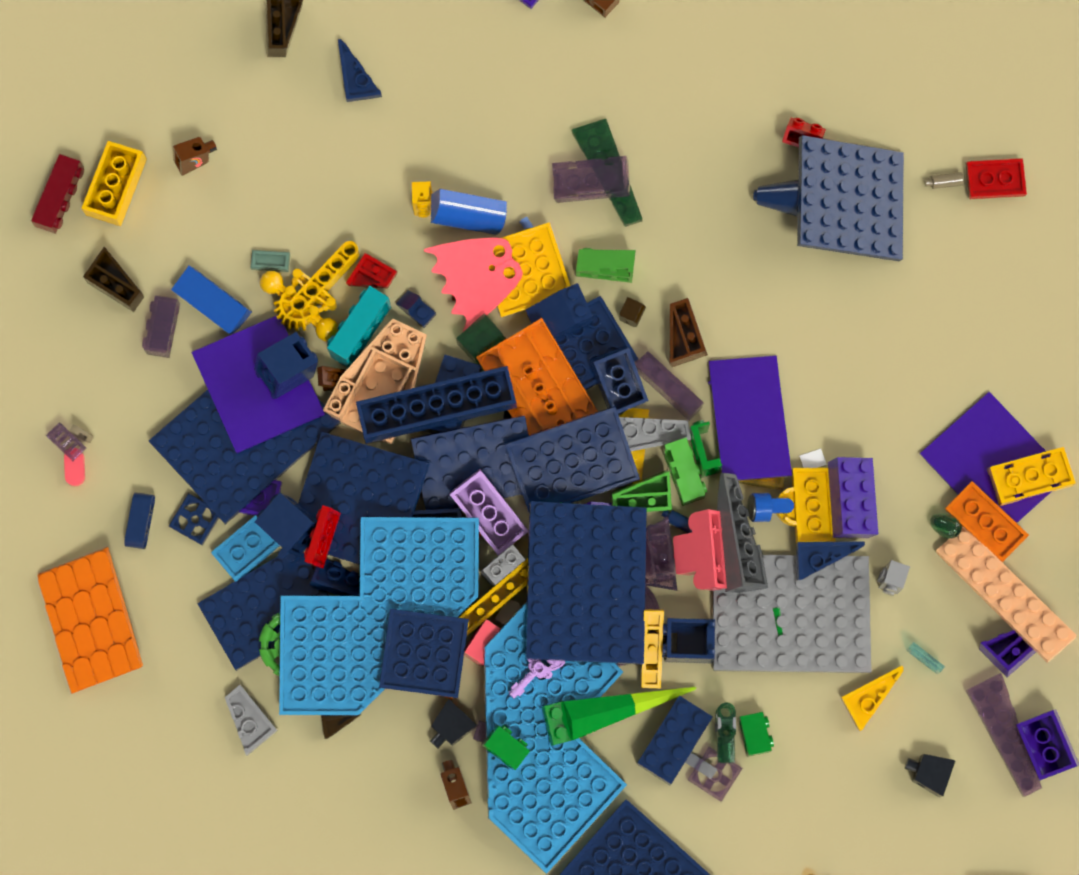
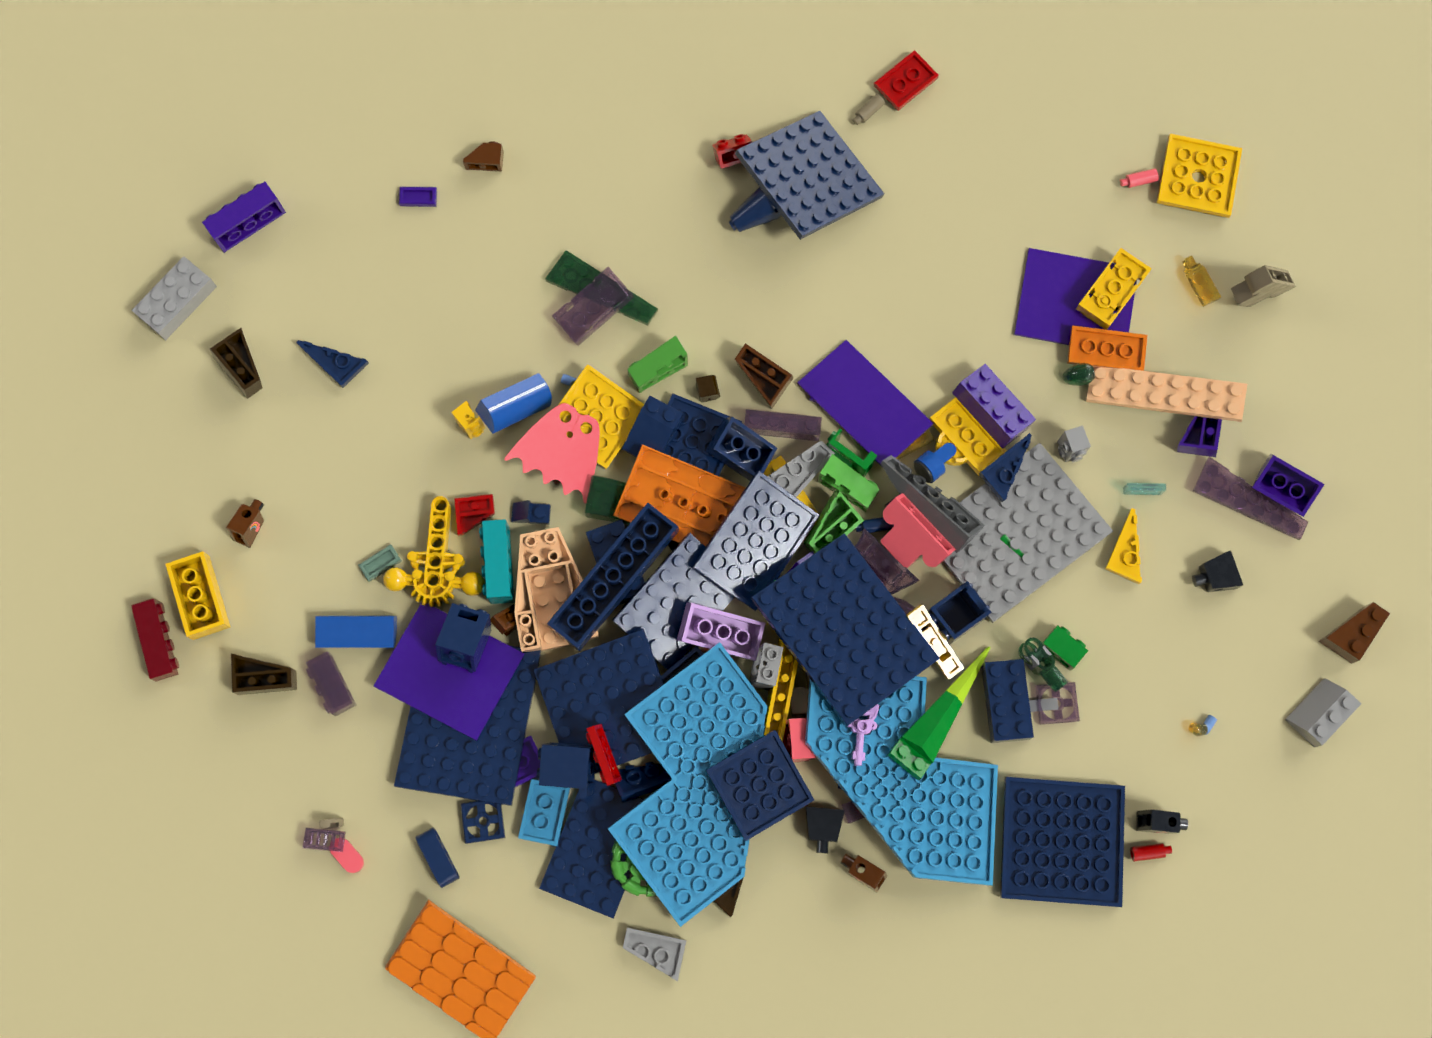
camera: 40 degrees left, 0 degrees up
(506, 747) = (886, 809): green brick -> none
(813, 459) = (937, 399): white sticker -> none

